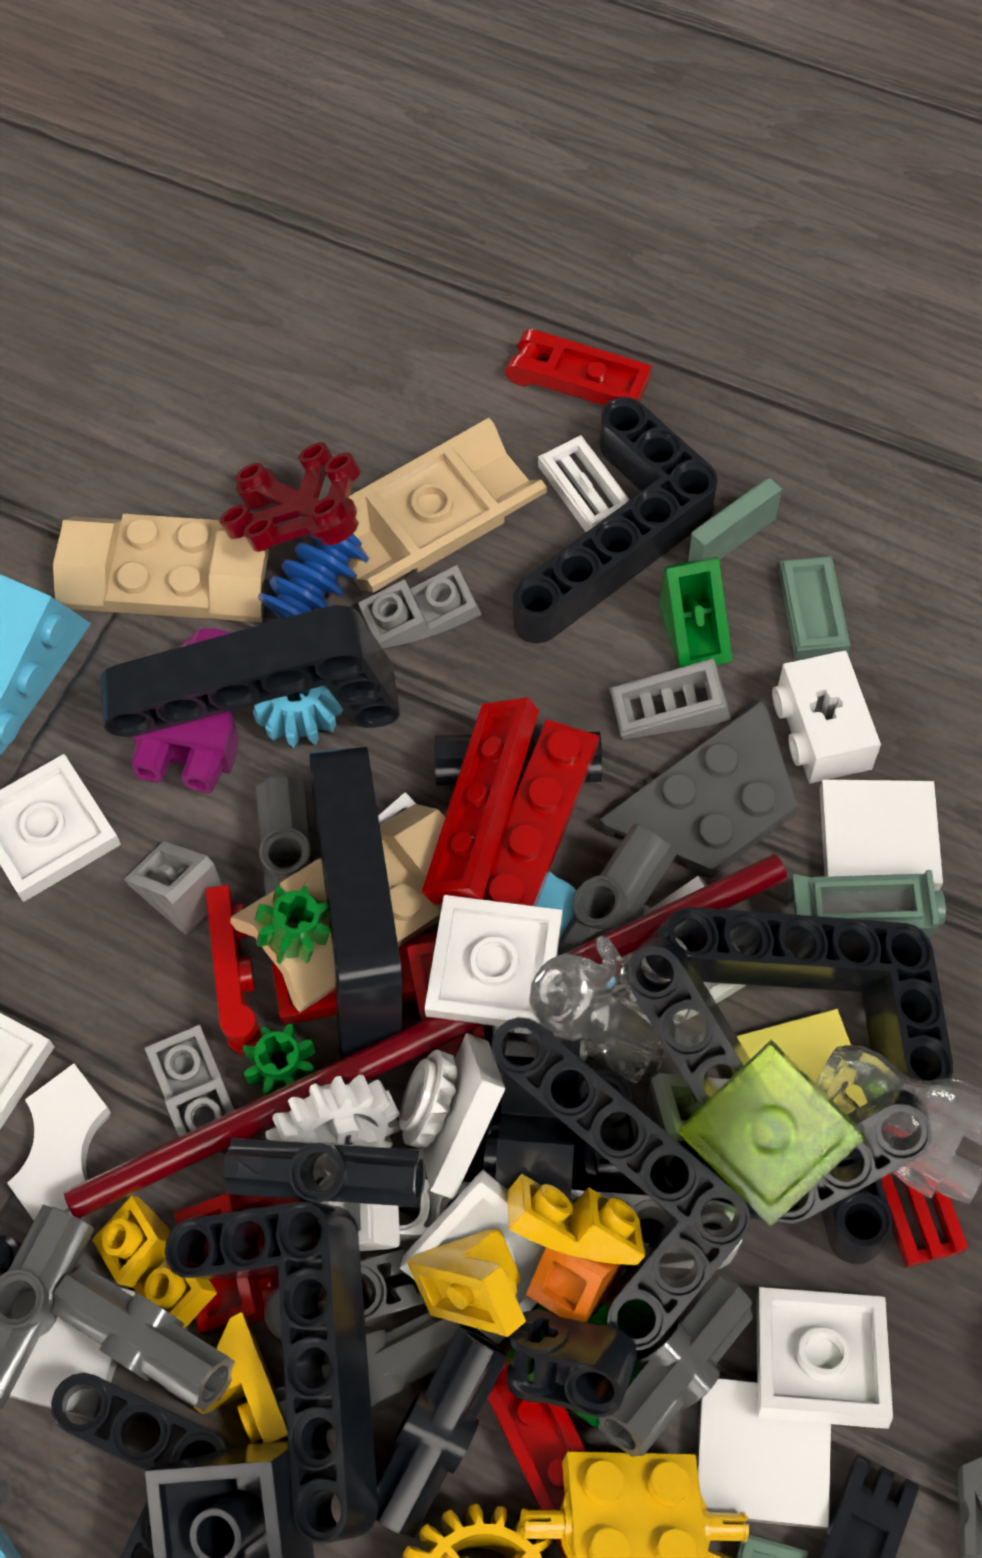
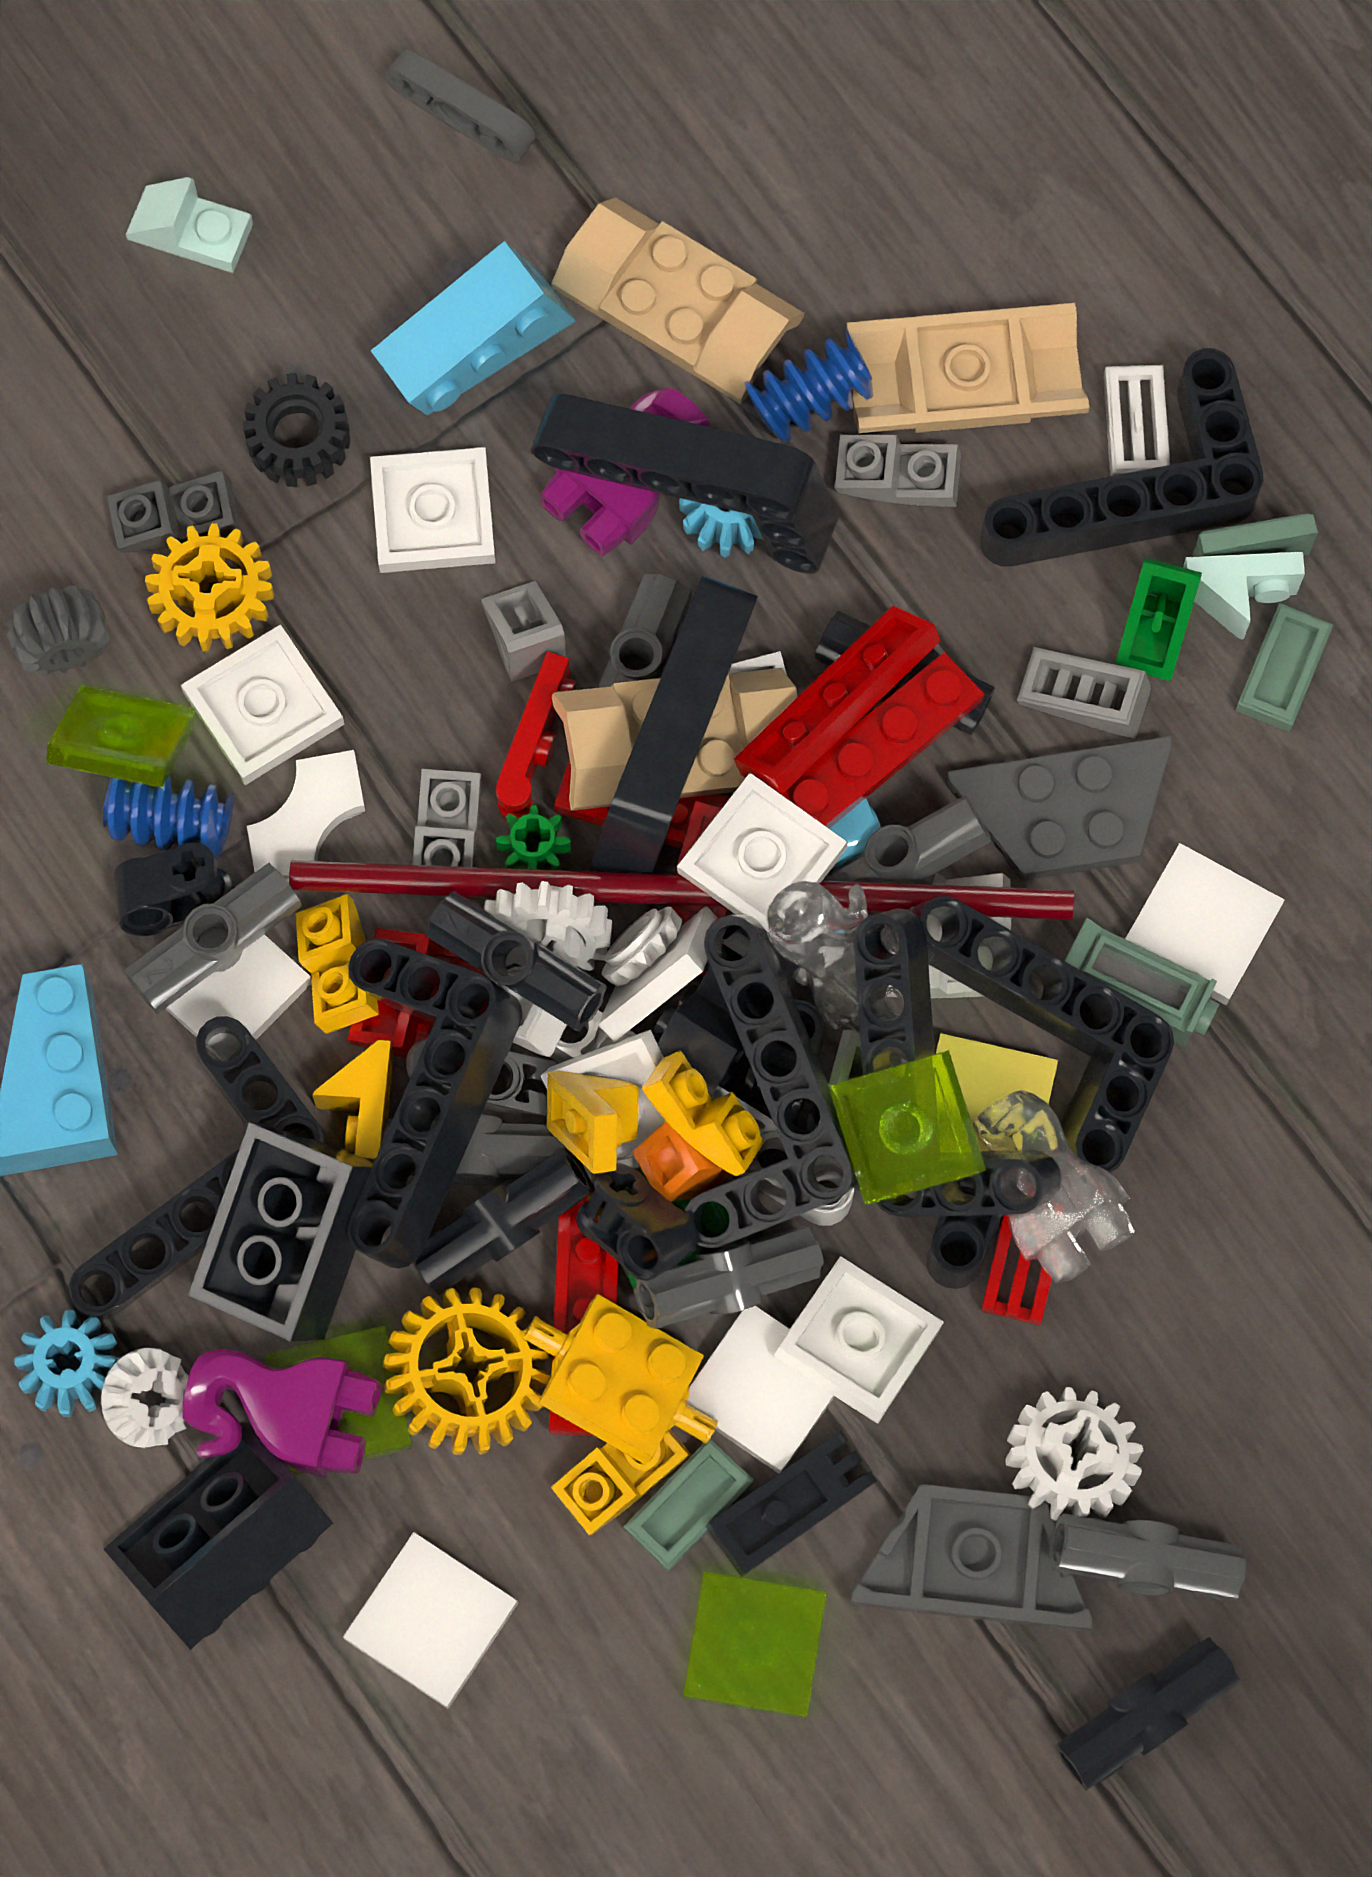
camera: 25 degrees right, 10 degrees up
(143, 1337) = (298, 1016): dark grey piece -> none
(295, 907) = (604, 714): green gear -> none
(326, 519) = (845, 346): dark red plant -> none
(576, 369) = (1203, 292): red plate -> none
(748, 554) = (1233, 578): none -> light aqua slope
(826, 717) = (1239, 757): white brick -> none

